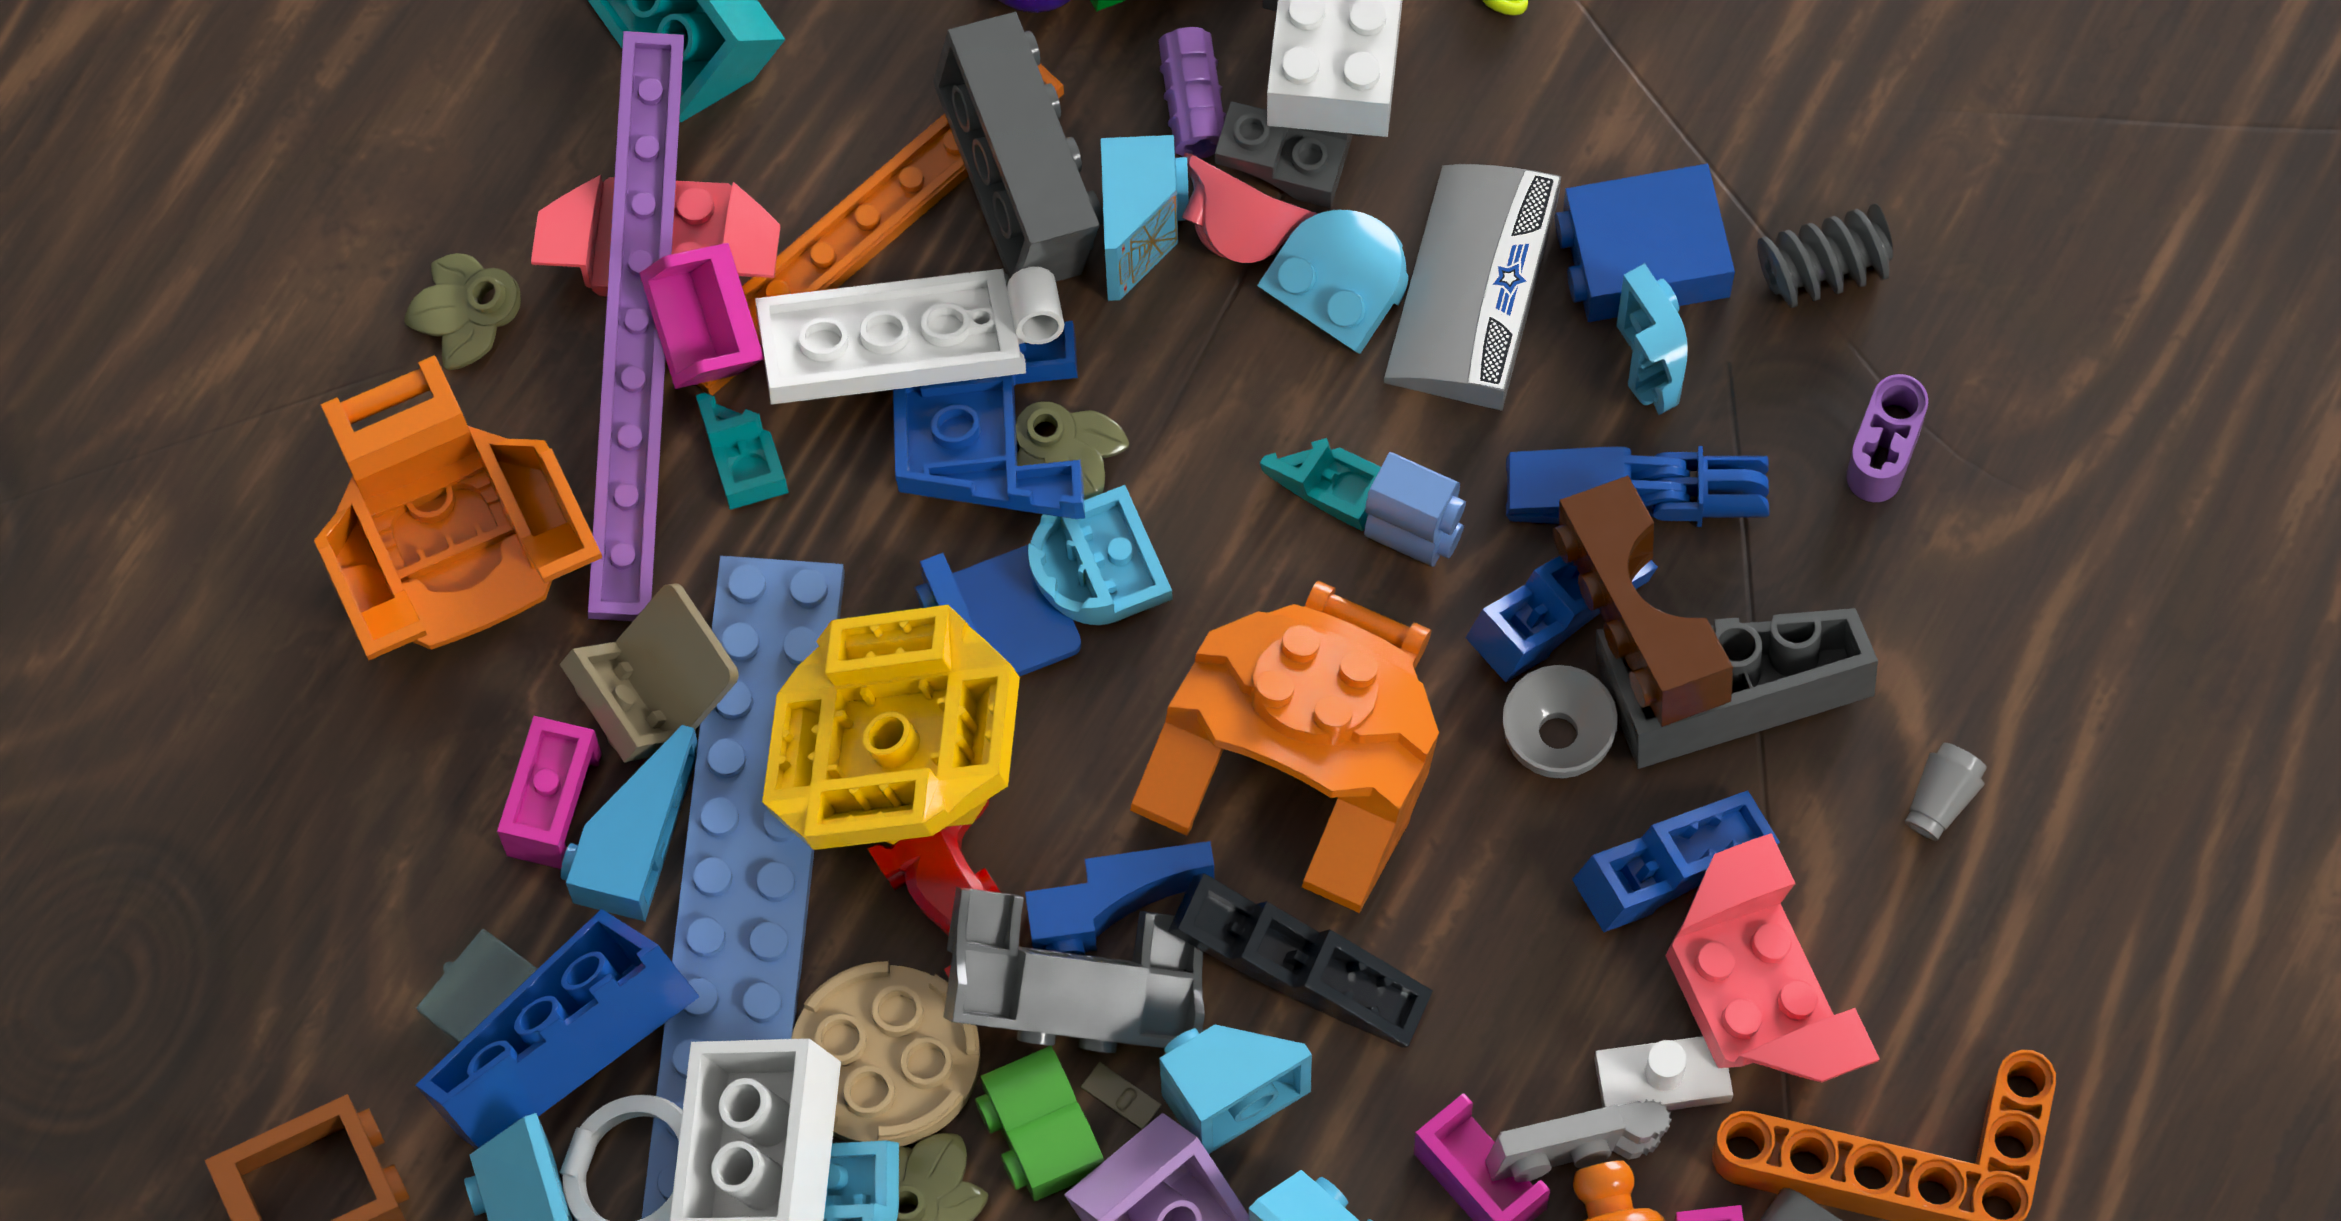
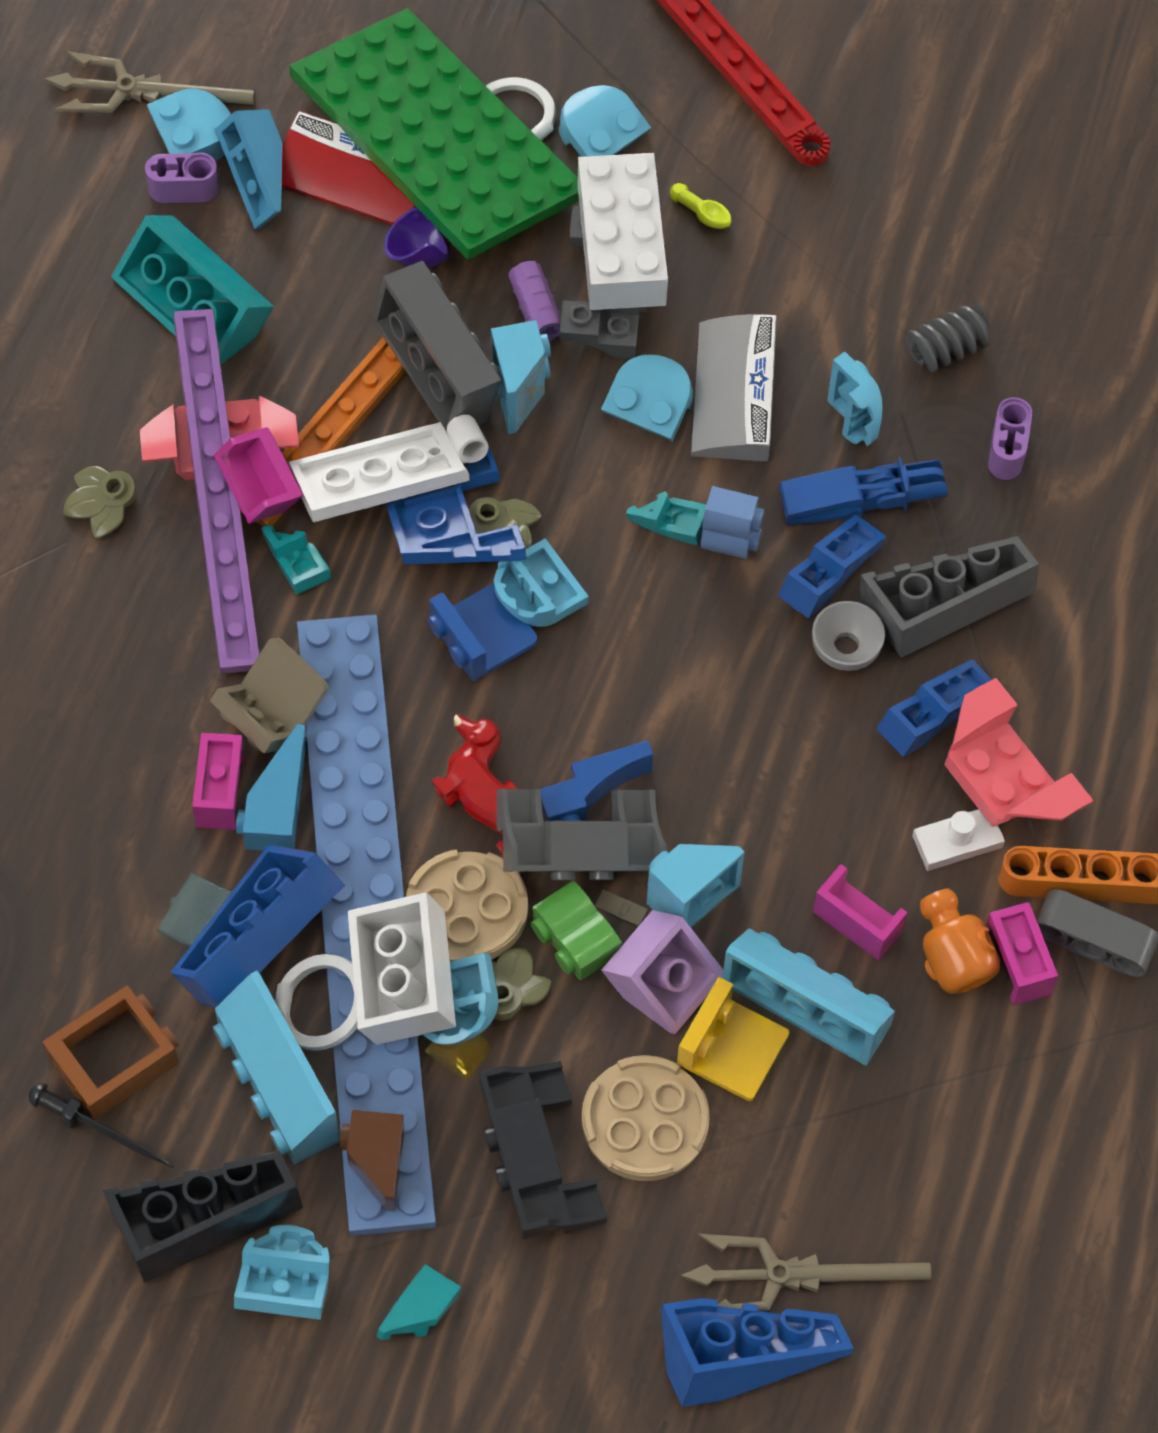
camera: 15 degrees left, 5 degrees down
(442, 519) = (119, 624): orange piece -> none
(891, 730) = (435, 701): yellow piece -> none
(1235, 217) = (580, 367): coral hat -> none
(1300, 961) = (718, 805): black slope -> none
(1317, 697) = (698, 640): orange piece -> none
(1578, 1138) = (916, 882): light grey hinge -> none
(1651, 220) = (823, 334): blue brick -> none
(1671, 658) = (915, 581): reddish brown arch -> none
(1944, 790) = (1092, 638): light grey cone -> none

